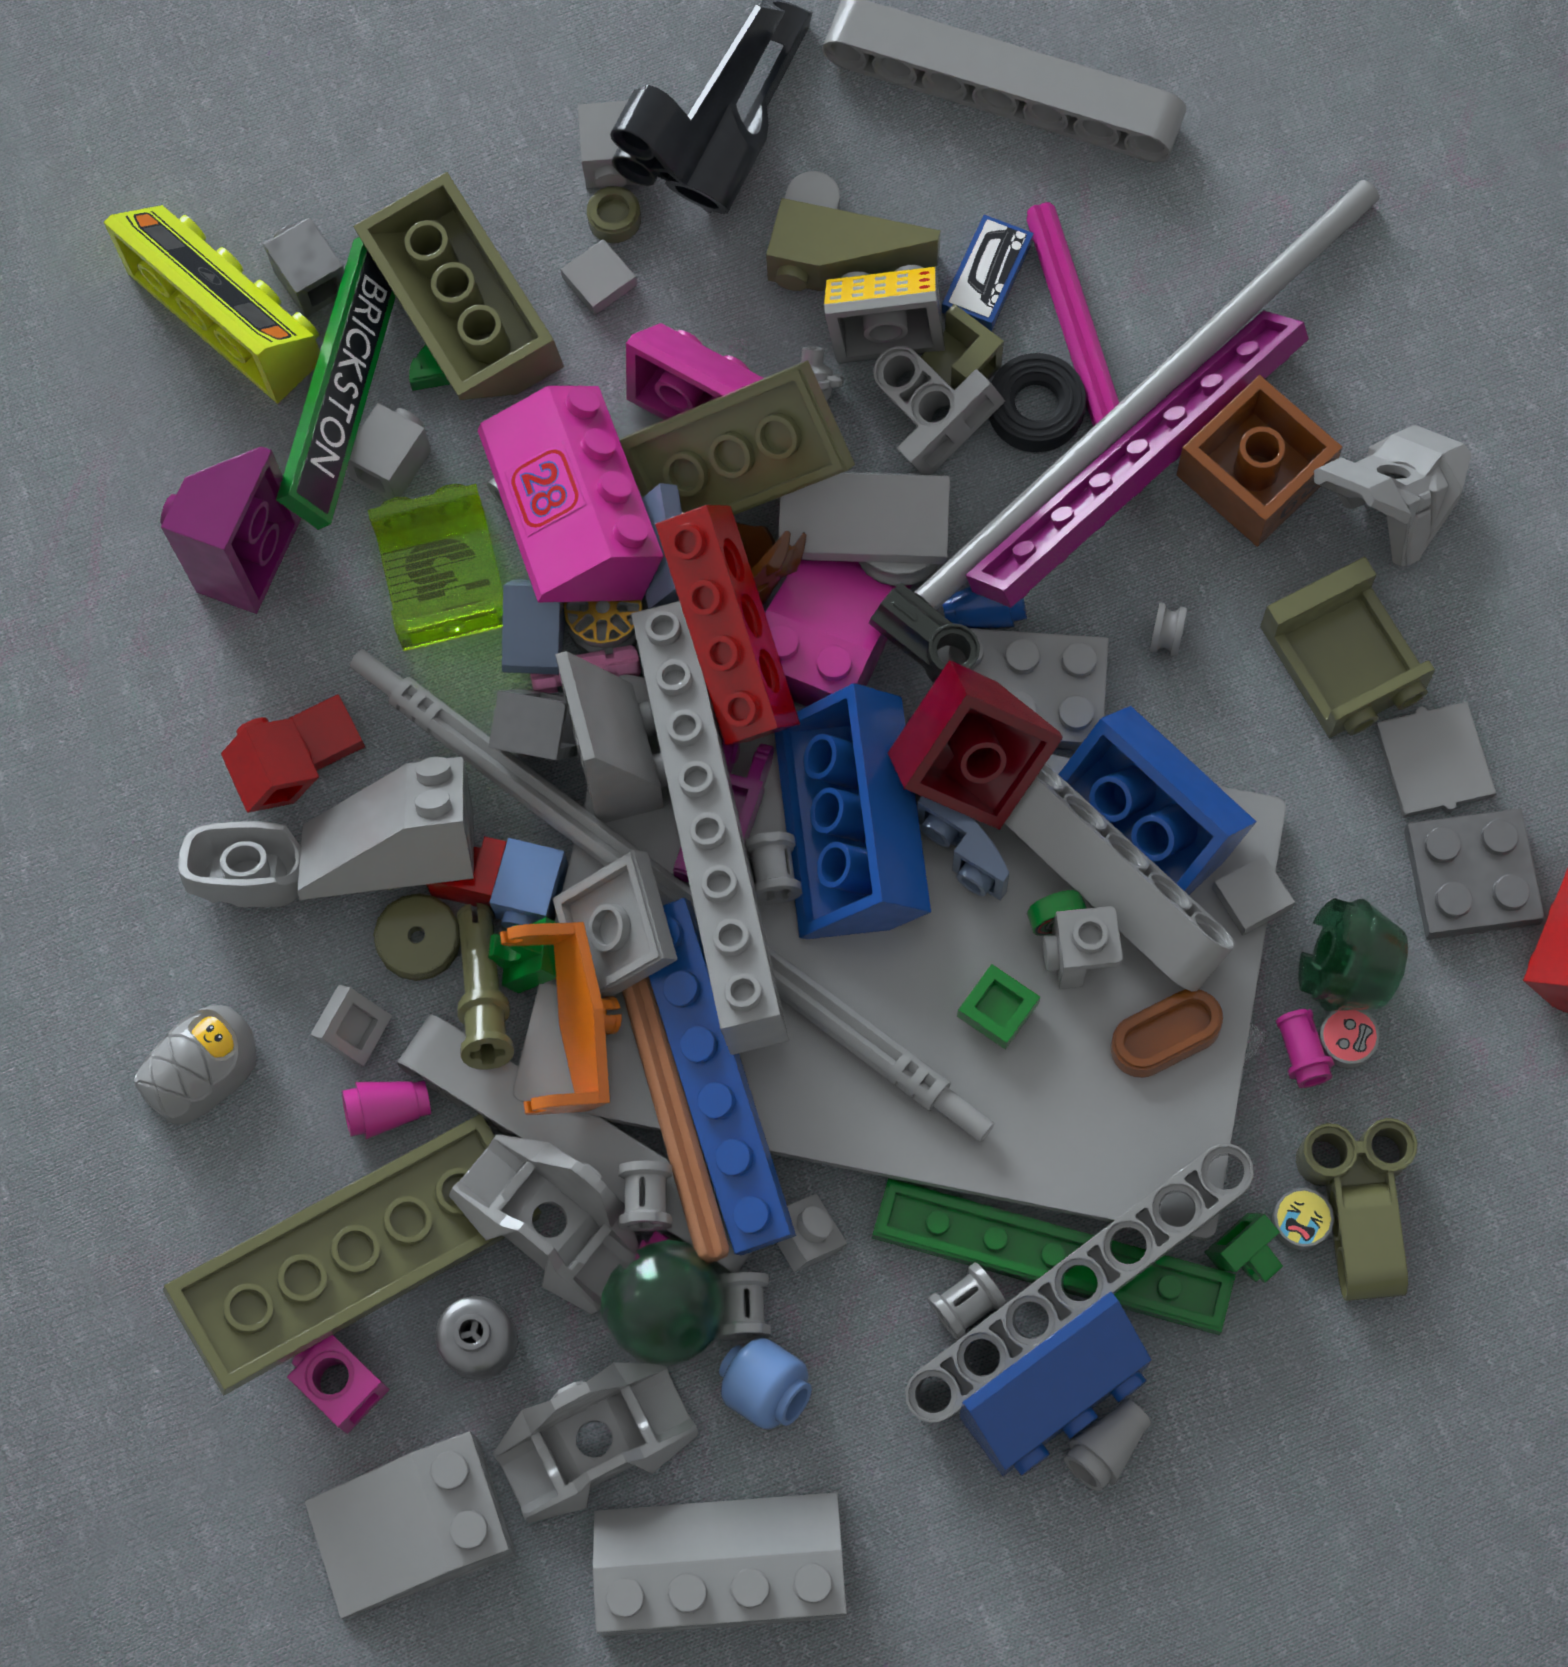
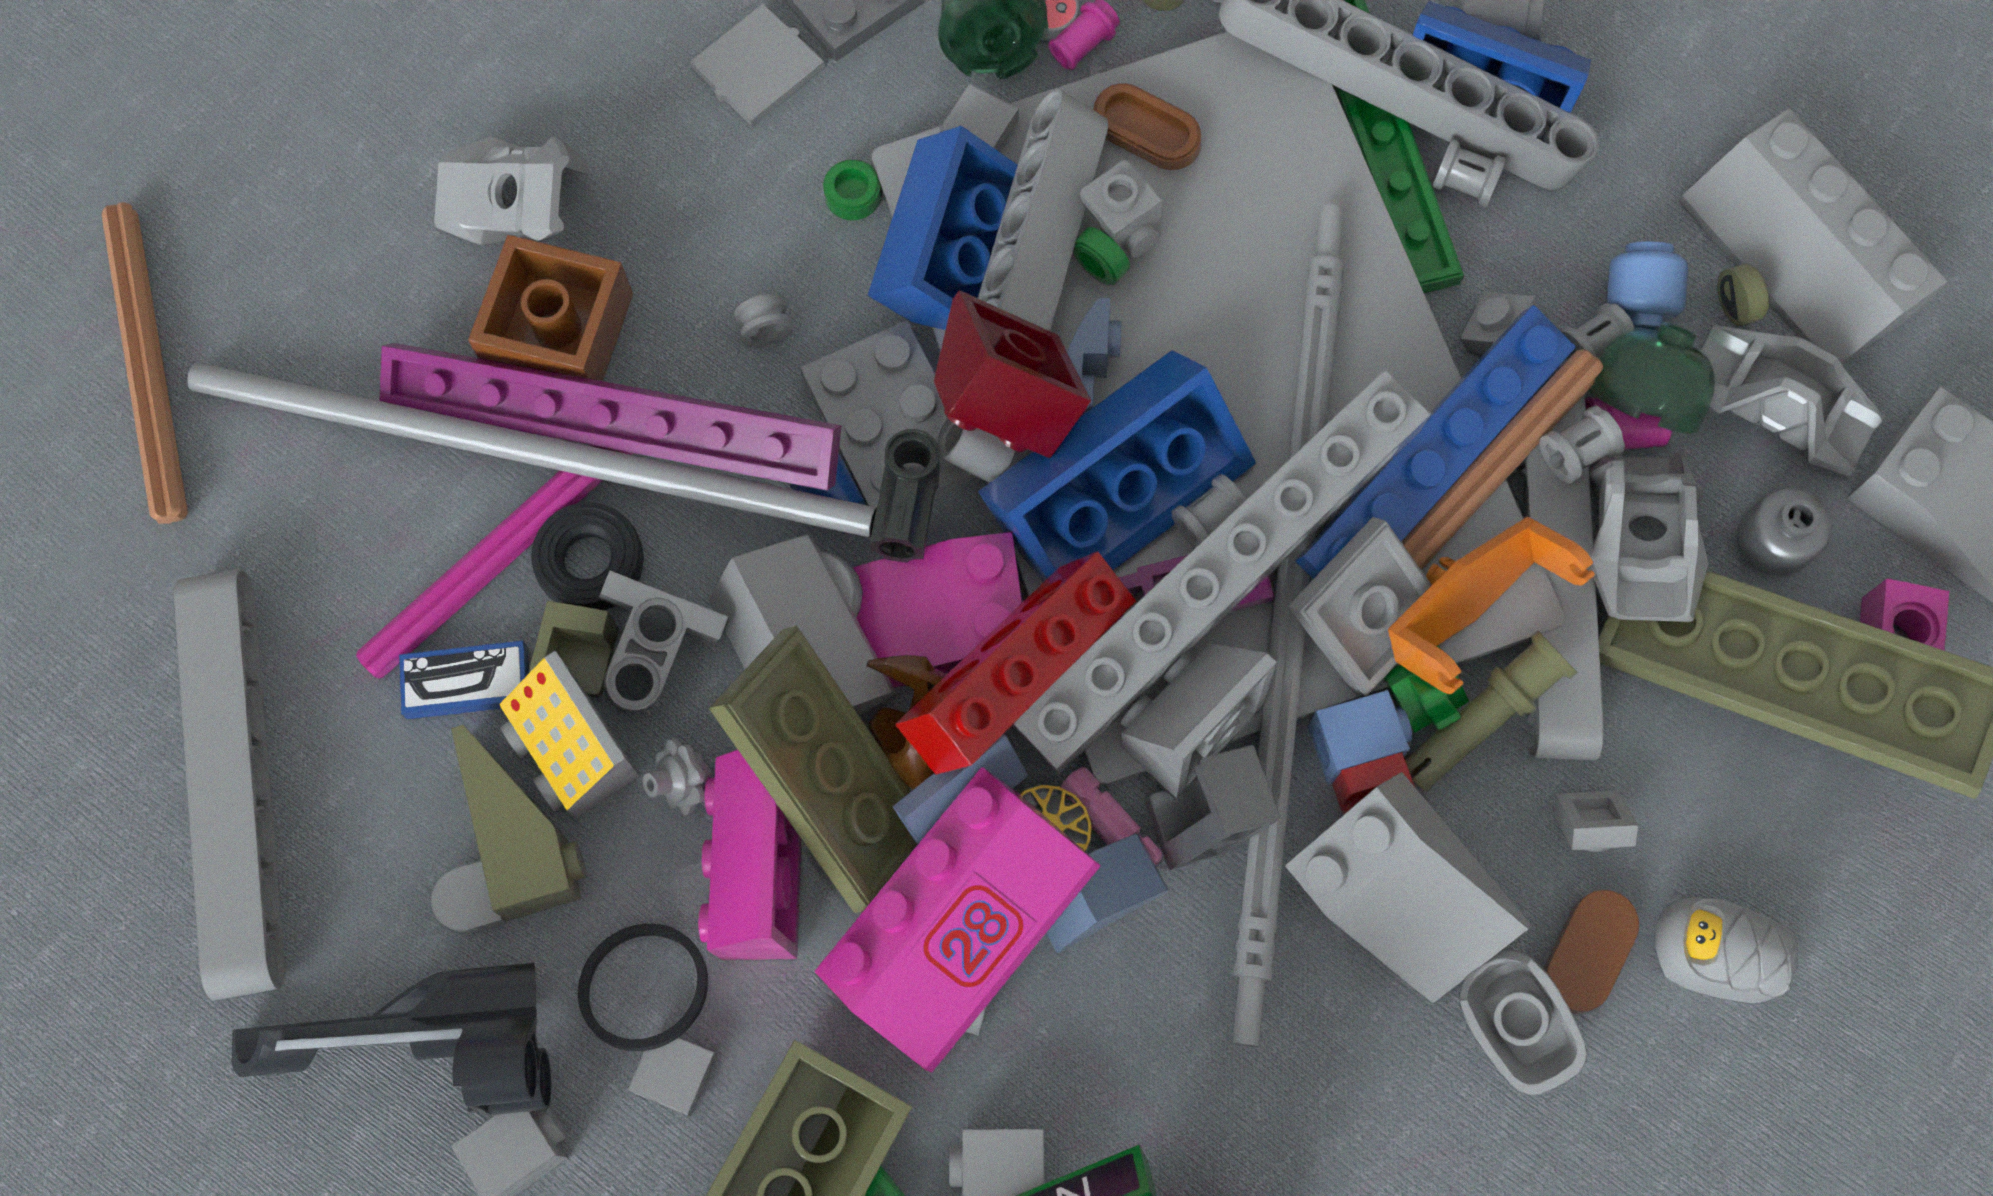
camera: 125 degrees left, 0 degrees up
(261, 963) = (1593, 949): none -> dark orange tile
(269, 764) = (1408, 1062): red brick -> none
(328, 732) = (1329, 1039): red tile -> none
(382, 1106) = (1644, 745): dark pink cone -> none
(410, 915) = (1487, 807): olive piece -> none
(439, 565) = (1094, 1031): clear neon green panel -> none
(614, 214) = (588, 1102): olive tile -> none
(671, 238) = (609, 944): none -> black piece
(706, 1466) = (1743, 294): none -> olive tile
(998, 1006) = (1216, 258): green plate -> none
(1260, 768) = (852, 189): none -> green tile
(1345, 650) = (700, 168): olive panel -> none
(1407, 159) = (144, 364): none -> nougat axle

